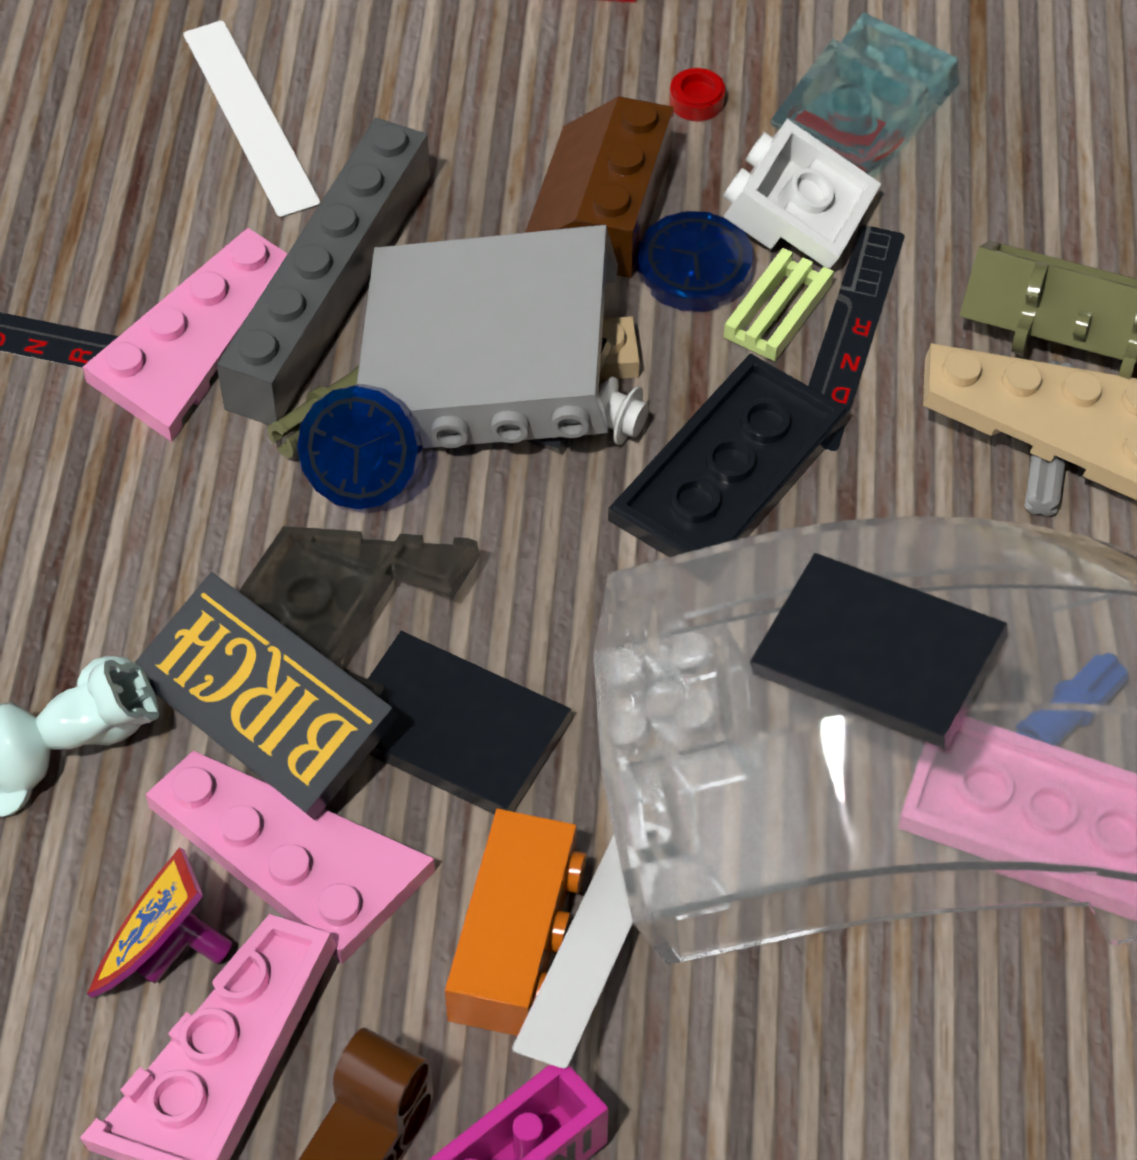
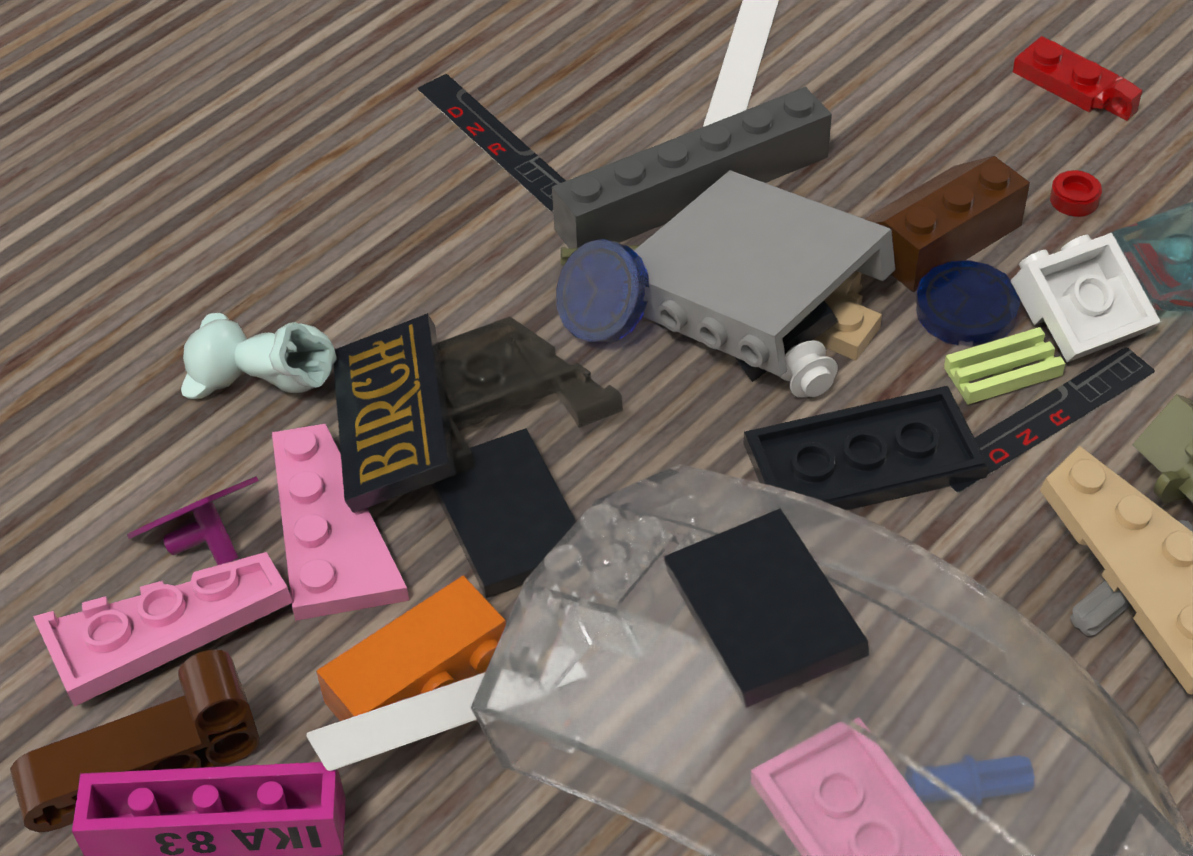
camera: 40 degrees right, 5 degrees down
(175, 347) = (525, 174): bright pink wing -> none

